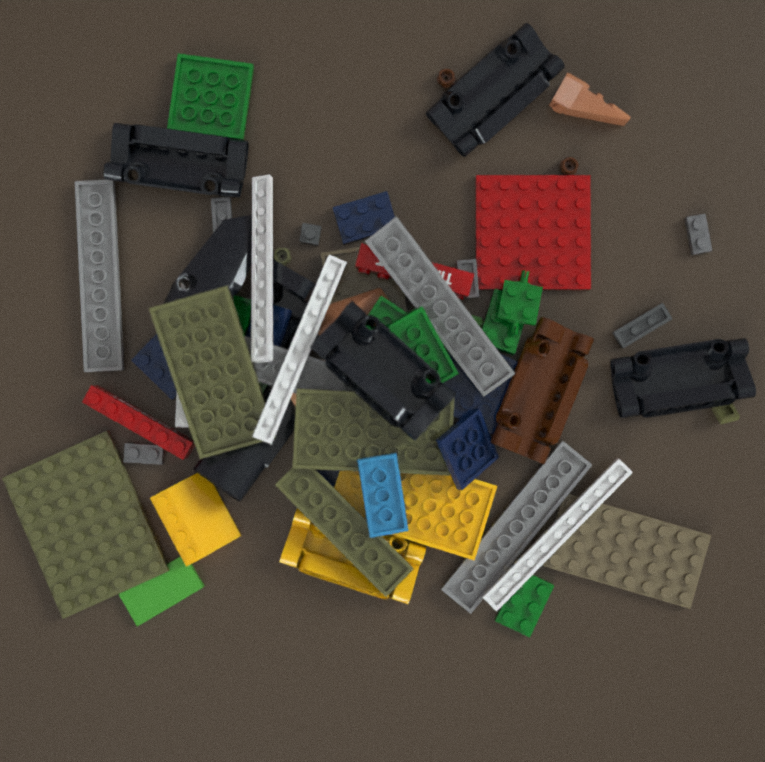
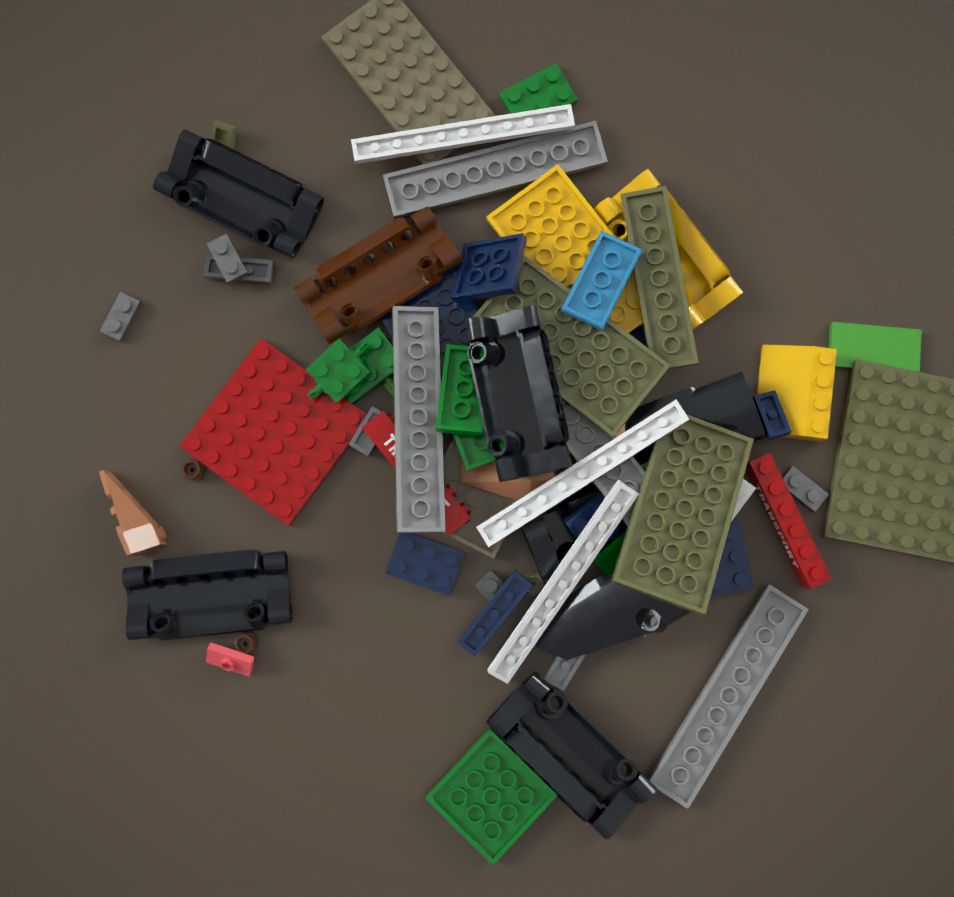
camera: 145 degrees left, 5 degrees down
(199, 487) = (772, 415): none -> dark blue plate
(293, 217) = (495, 613): none -> dark blue plate
(448, 59) = (230, 659): none -> coral plate
(655, 325) = (227, 259): none -> flat silver plate

